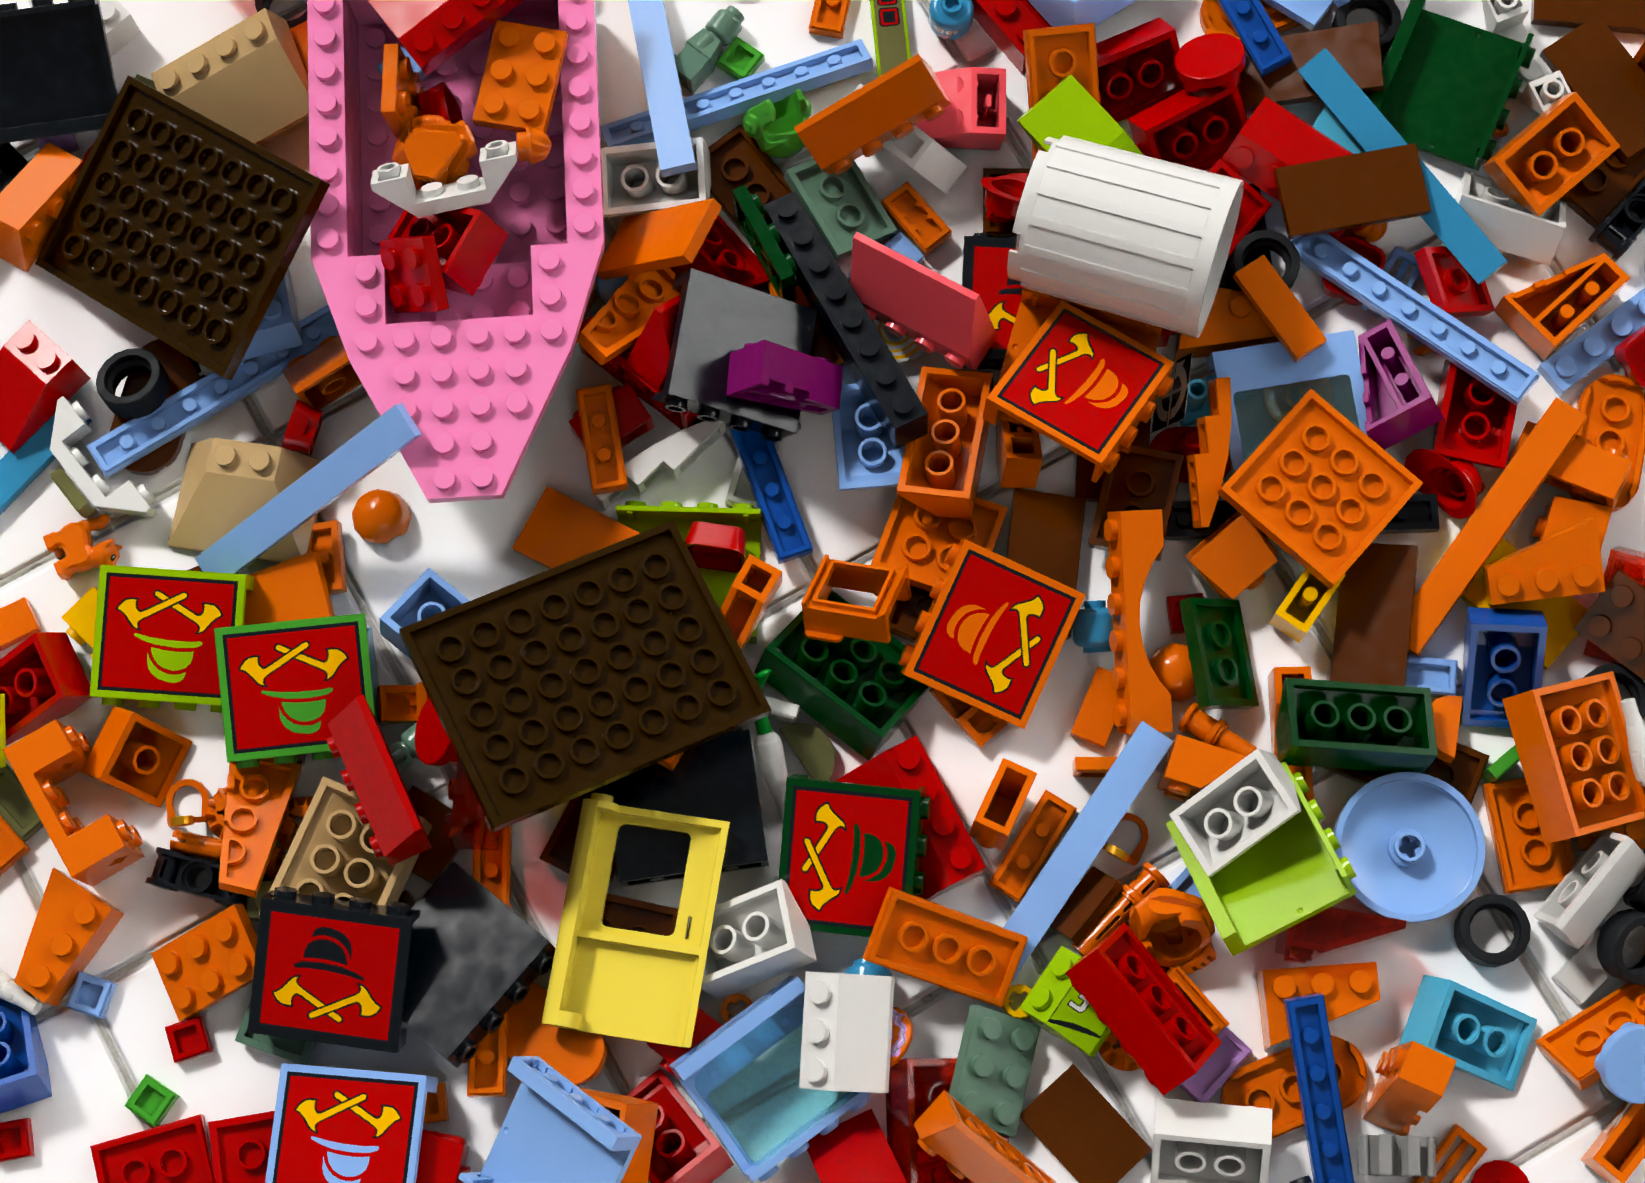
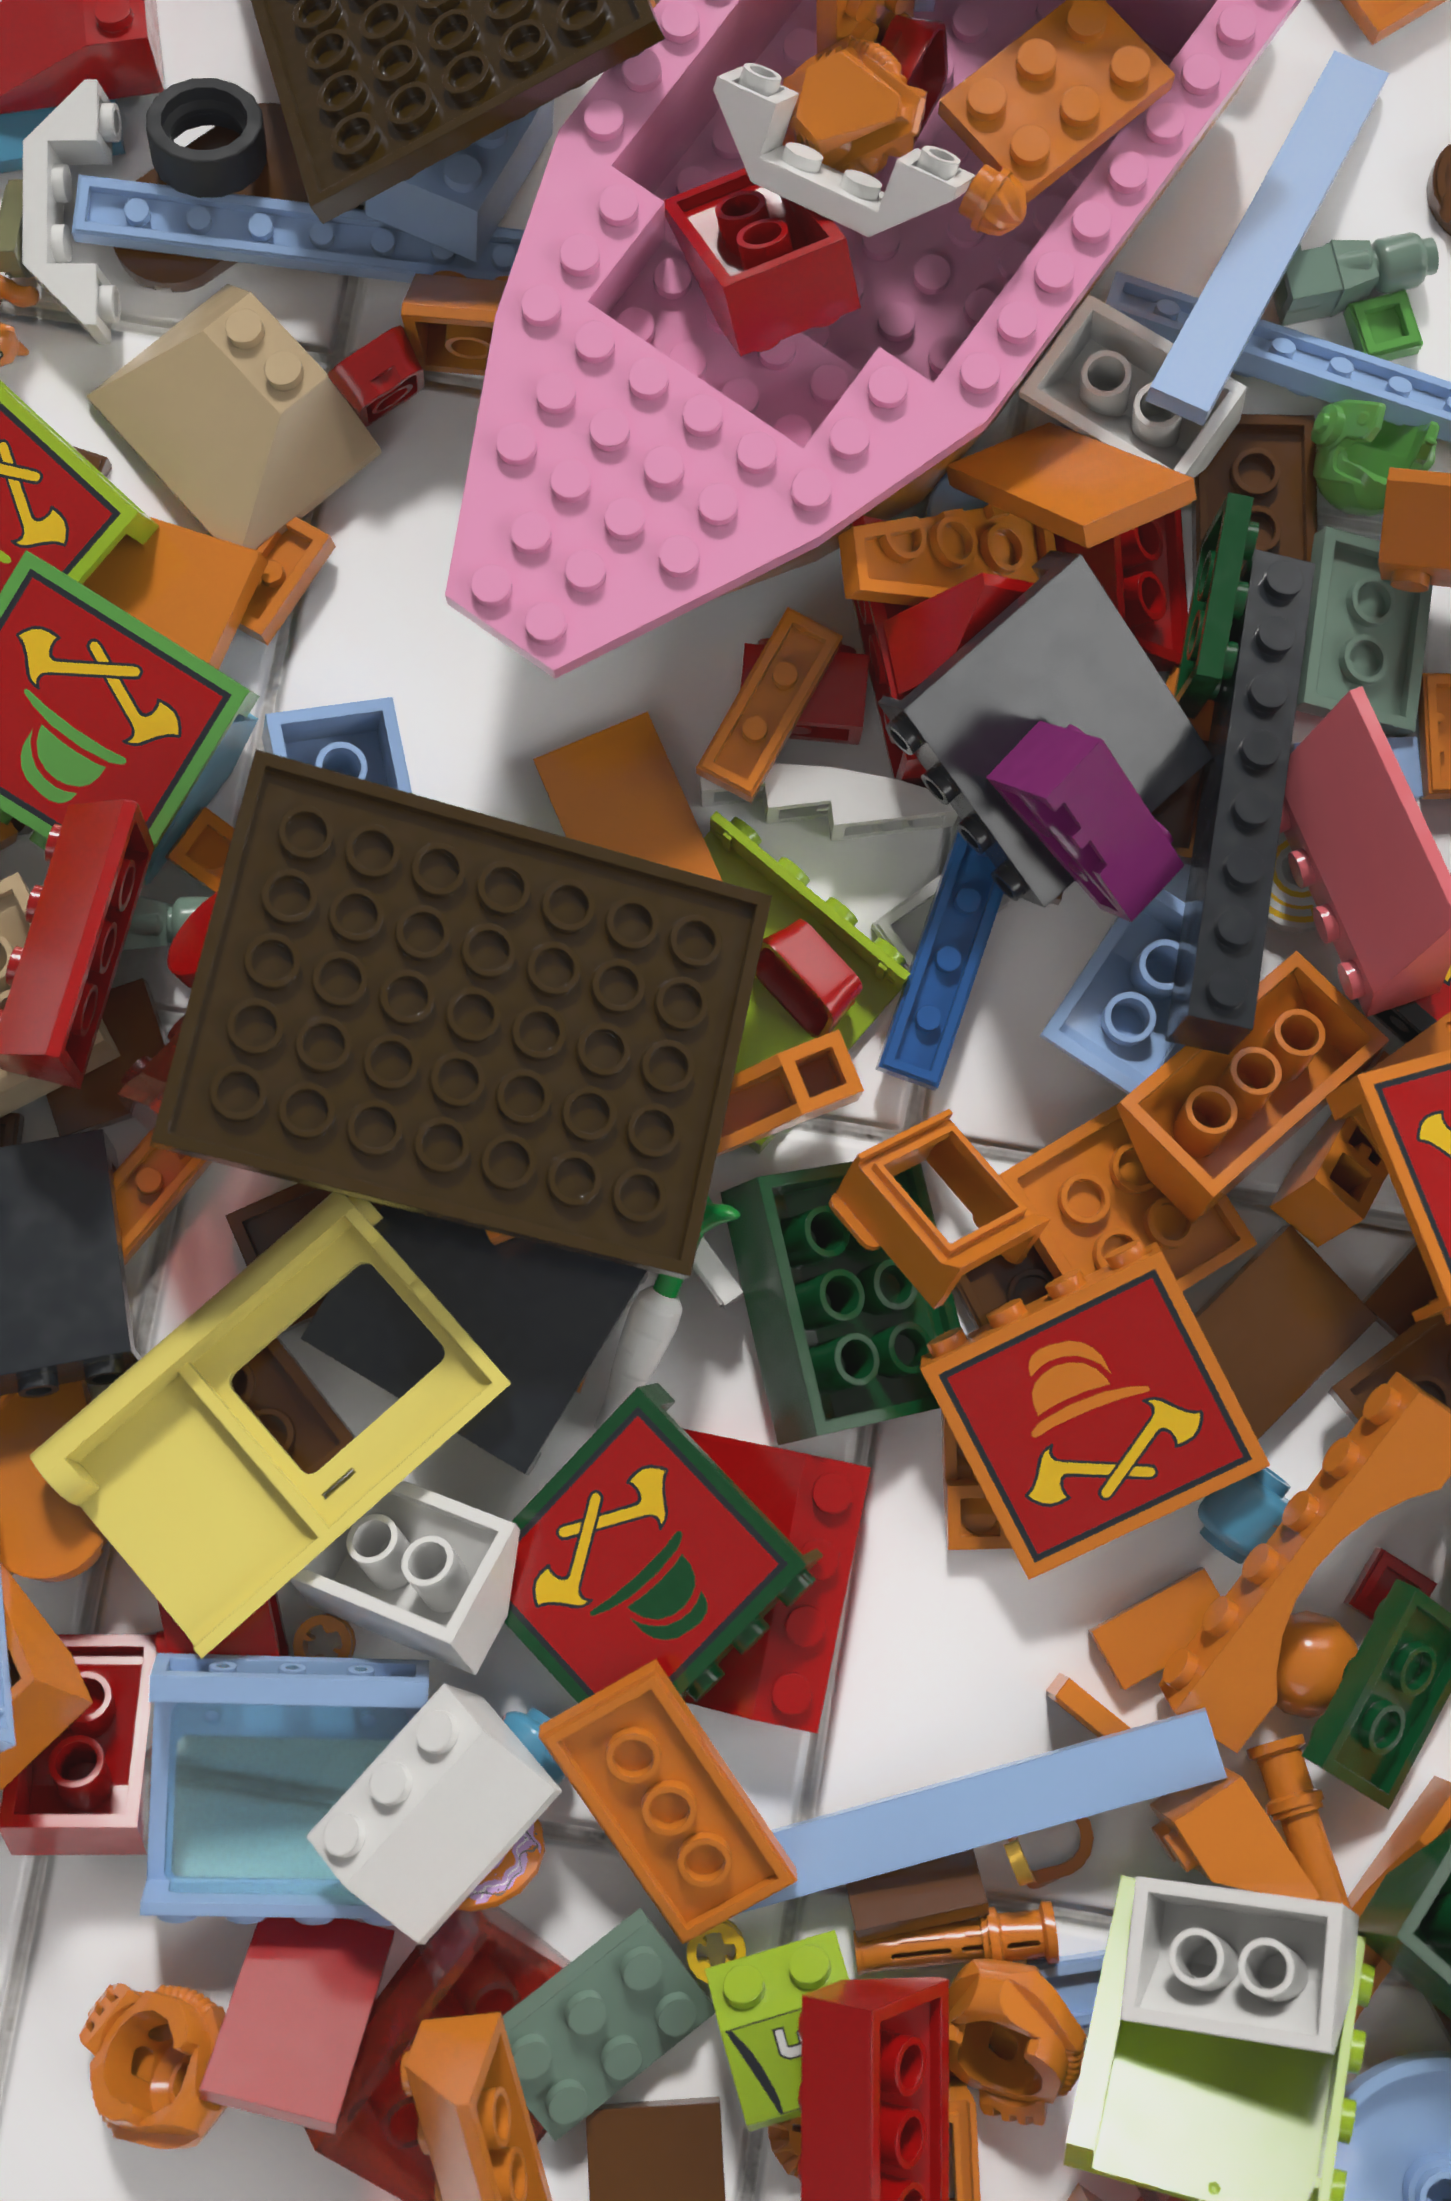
camera: 30 degrees right, 5 degrees up
(311, 492) = (314, 465): light blue tile -> none
(381, 516) = (395, 578): orange hair -> none
(414, 274) = (681, 260): red plate -> none
(811, 748) = (714, 1366): olive tile -> none
(1002, 805) = (912, 1663): orange torso -> none
(1032, 846) = (909, 1746): orange tile -> none

